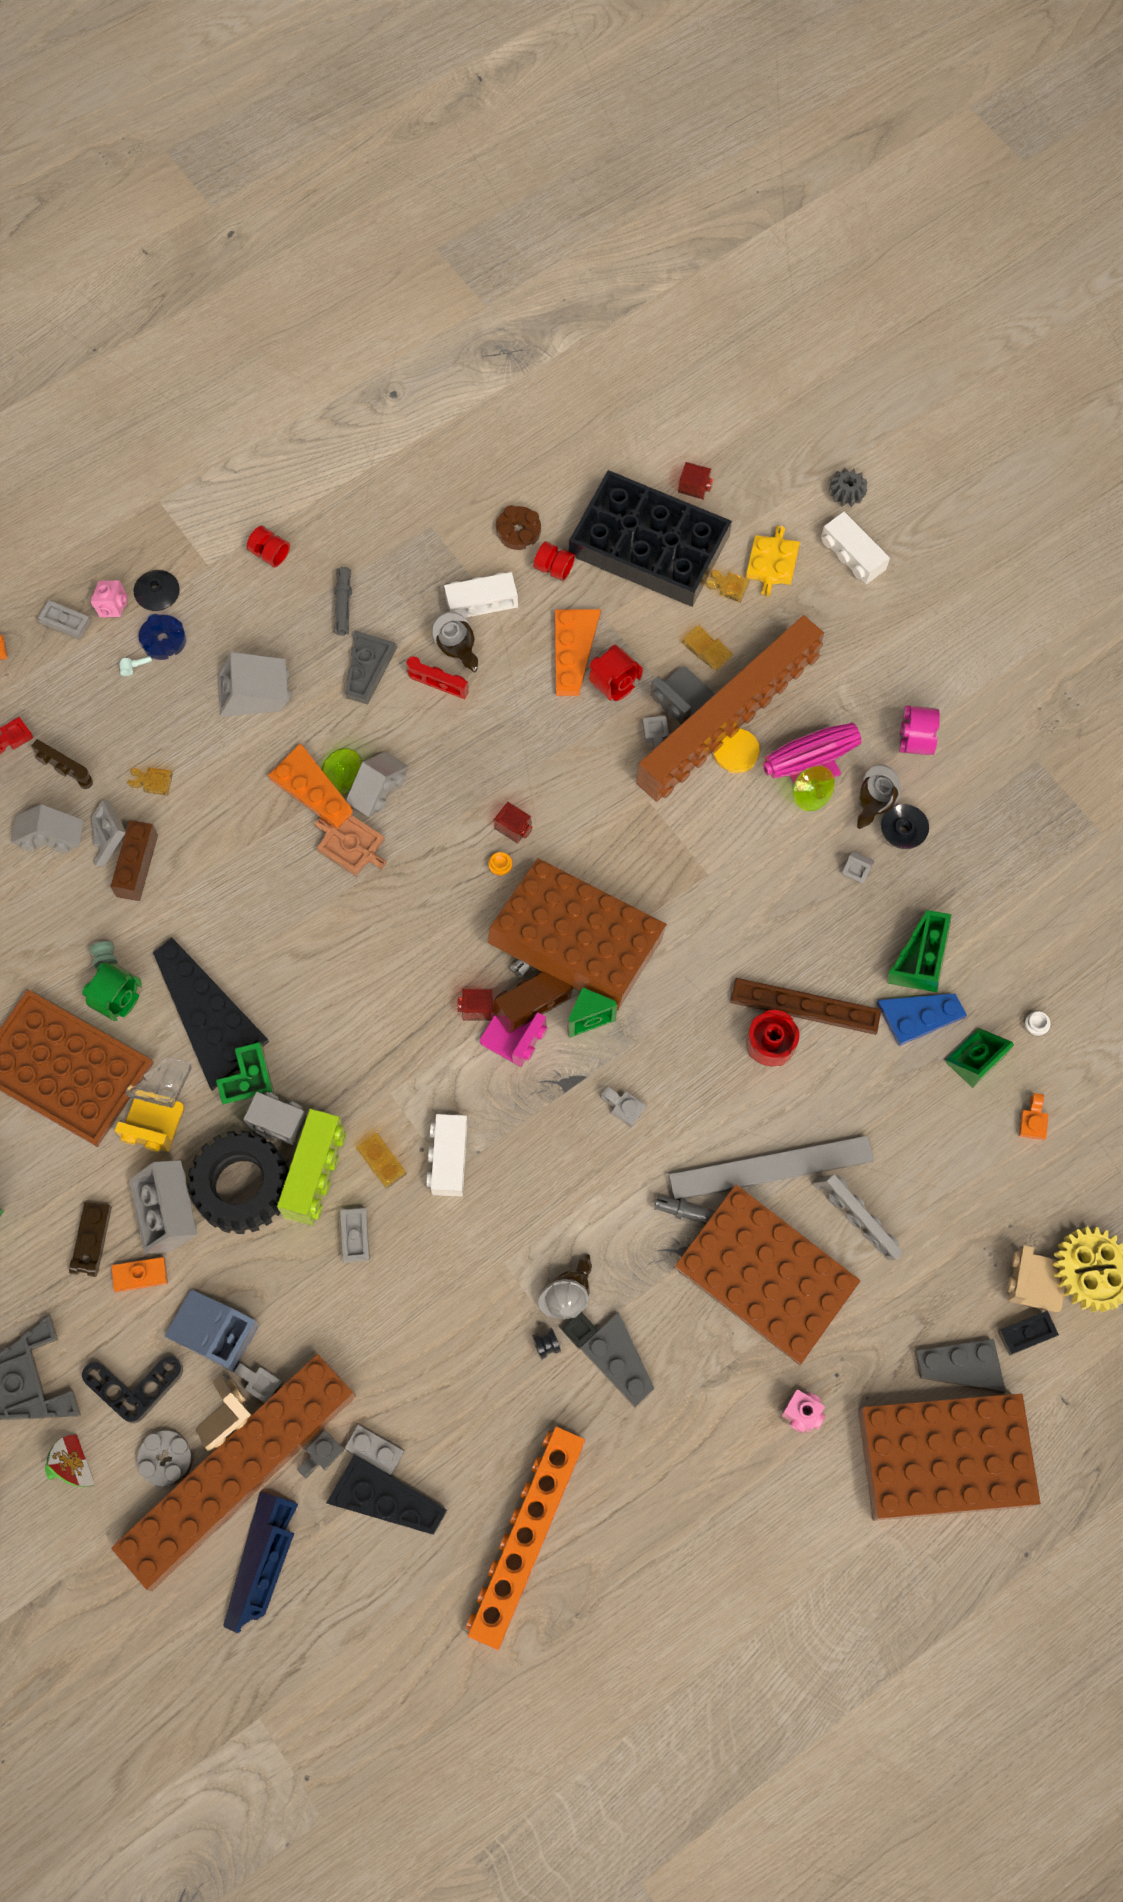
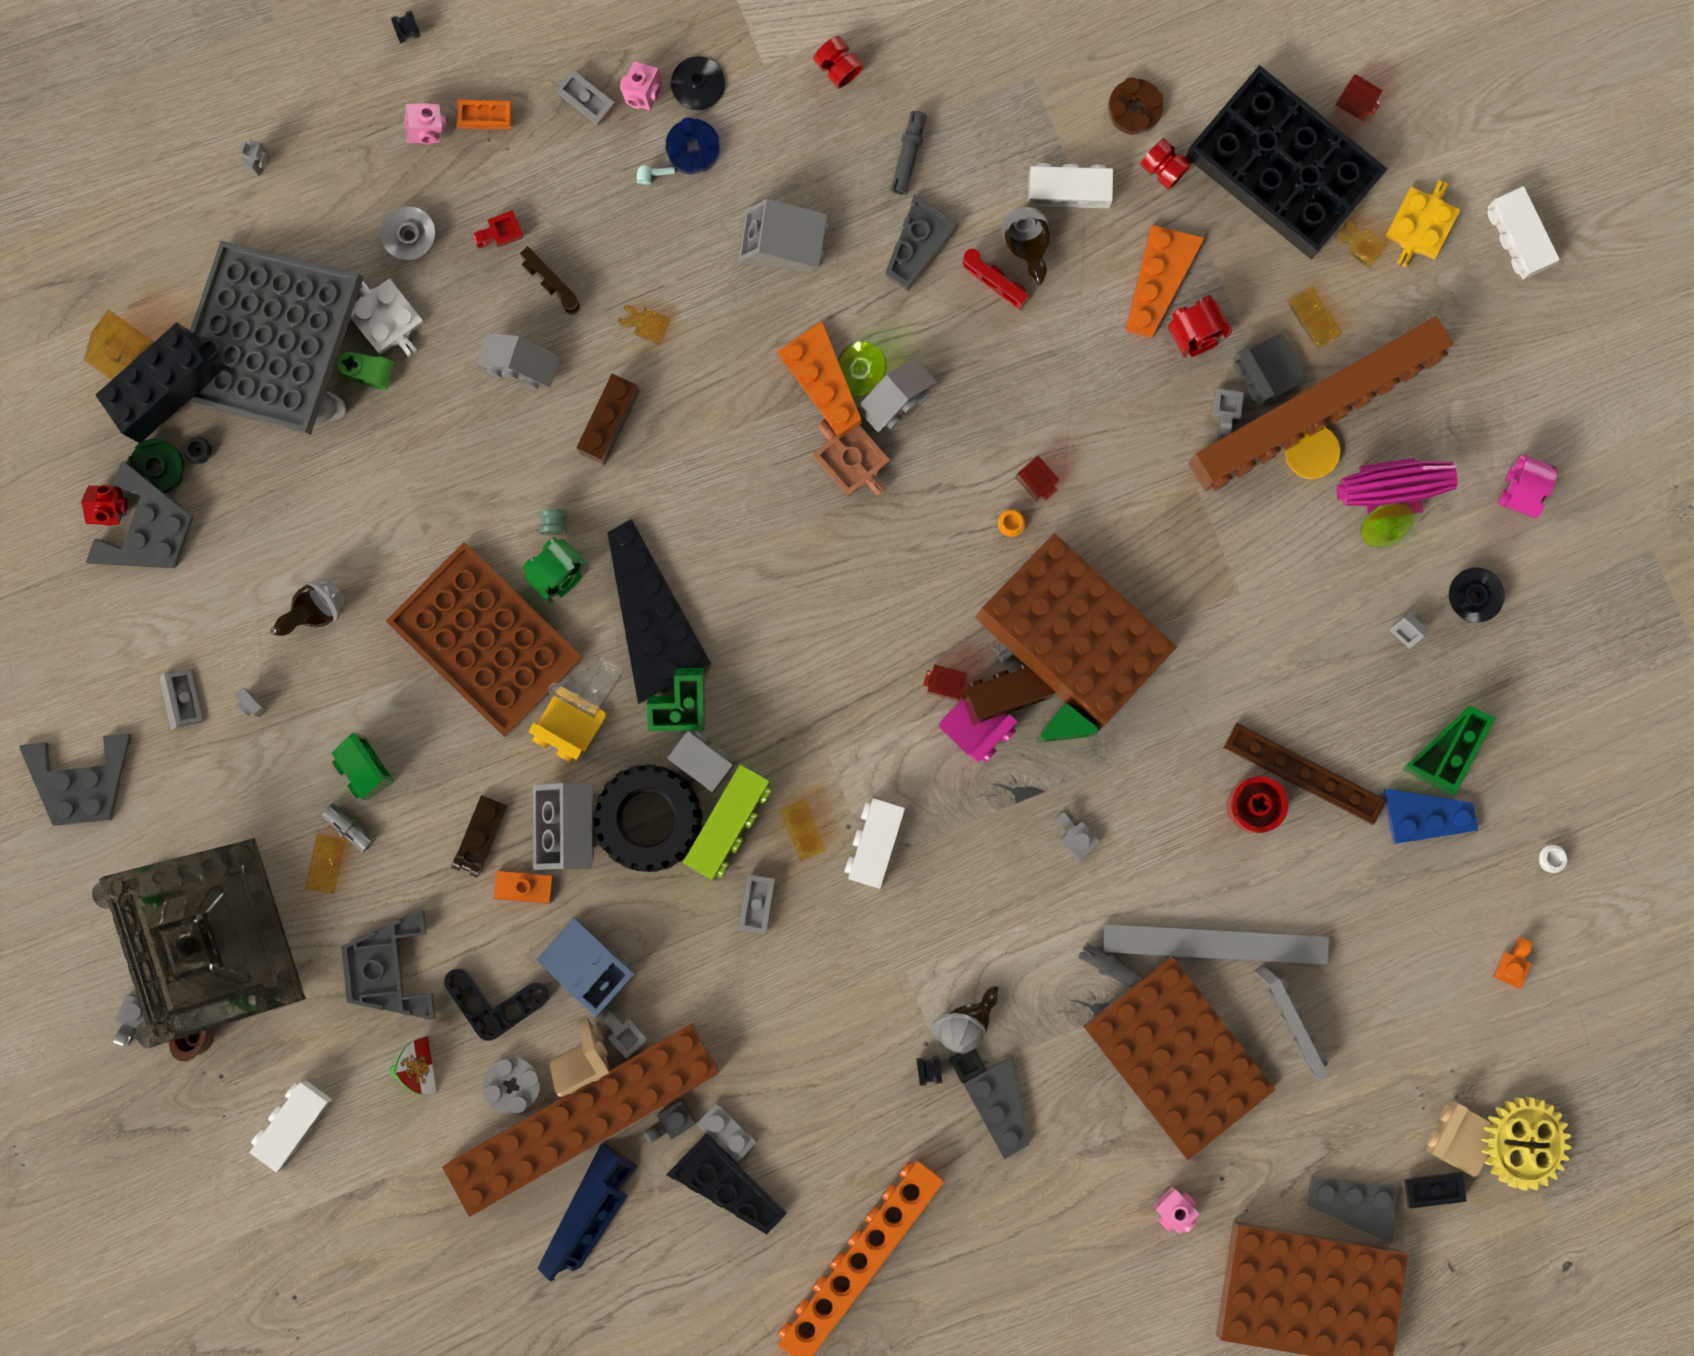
camera: 15 degrees right, 15 degrees up
(106, 831) = (584, 376): light grey wing -> none
(848, 487) = (1532, 157): dark grey gear -> none
(878, 793) = (1456, 551): piece -> none
(978, 1055) = (1476, 879): green slope -> none

